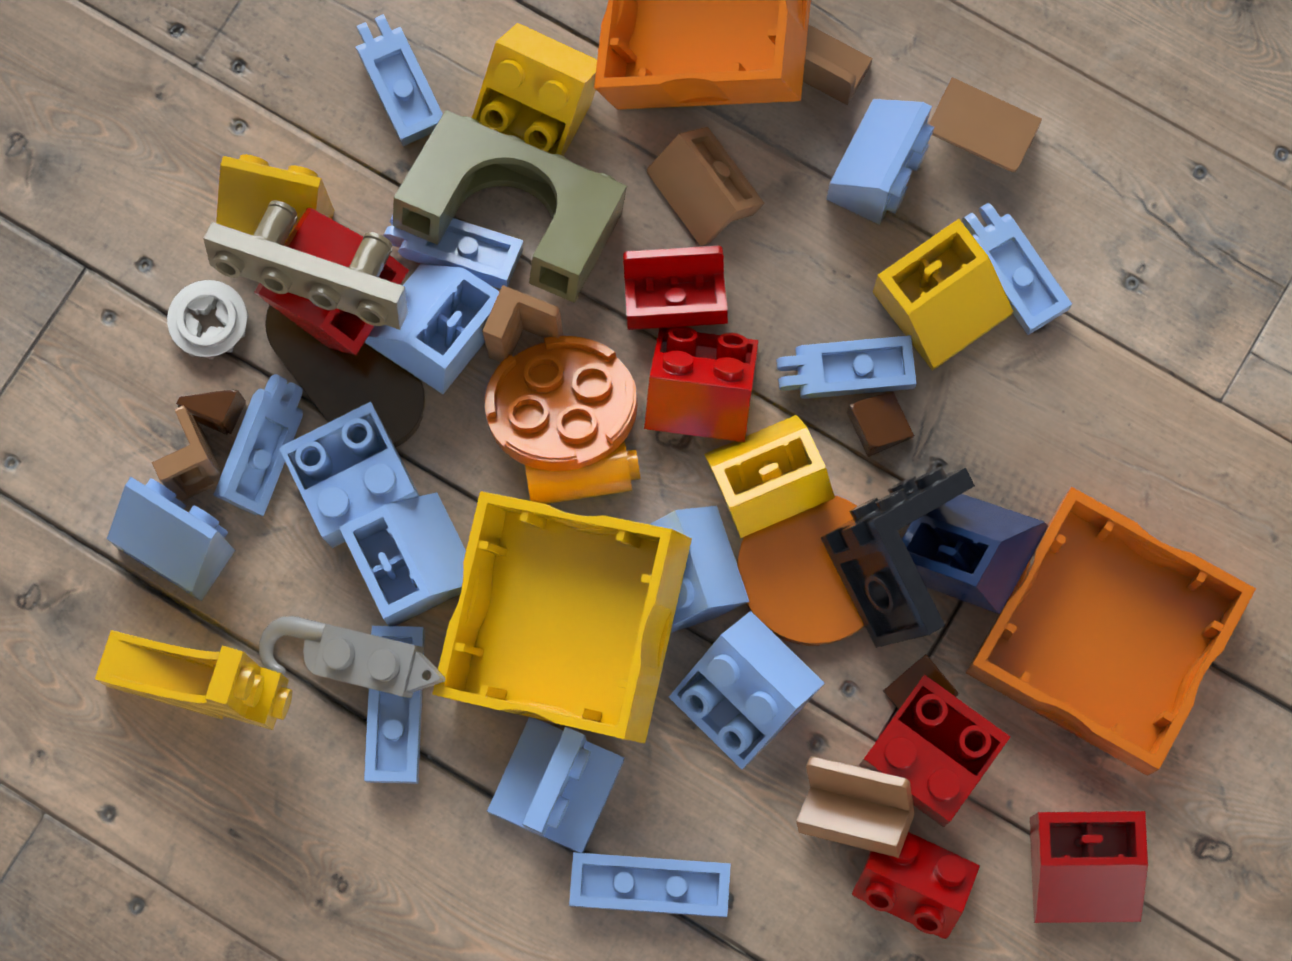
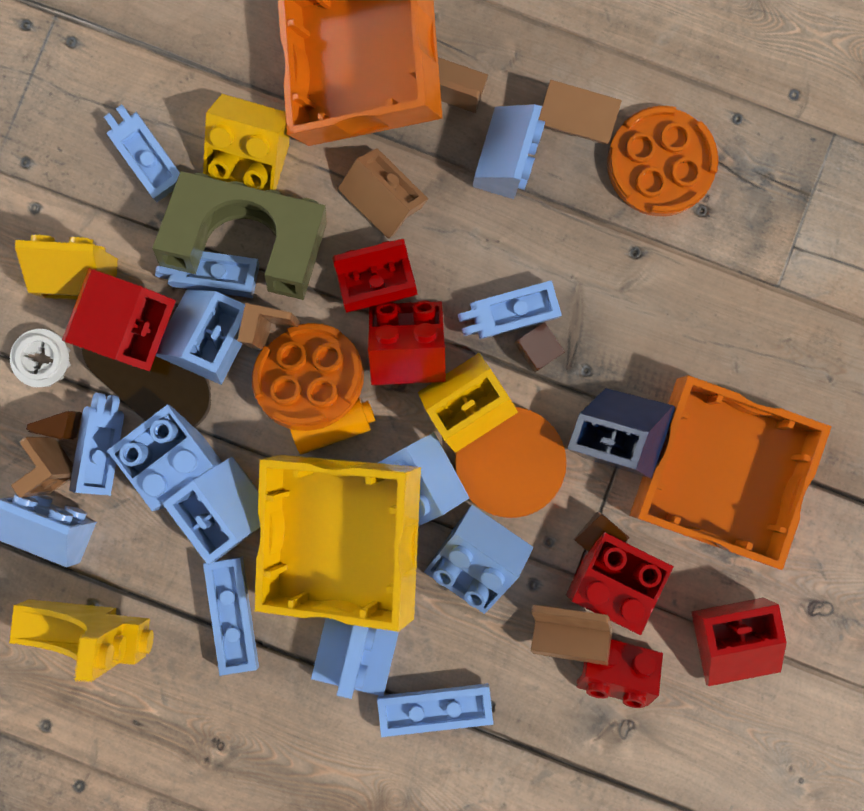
camera: 15 degrees left, 10 degrees up
(323, 282) = (108, 328): dark tan plate -> none
(353, 656) = (194, 590): light grey plate -> none
(877, 563) = (556, 458): black bracket -> none
(943, 294) = (571, 245): yellow slope -> none
(1022, 273) = (617, 215): light blue hinge -> none
(1089, 209) = (662, 161): none -> orange tile

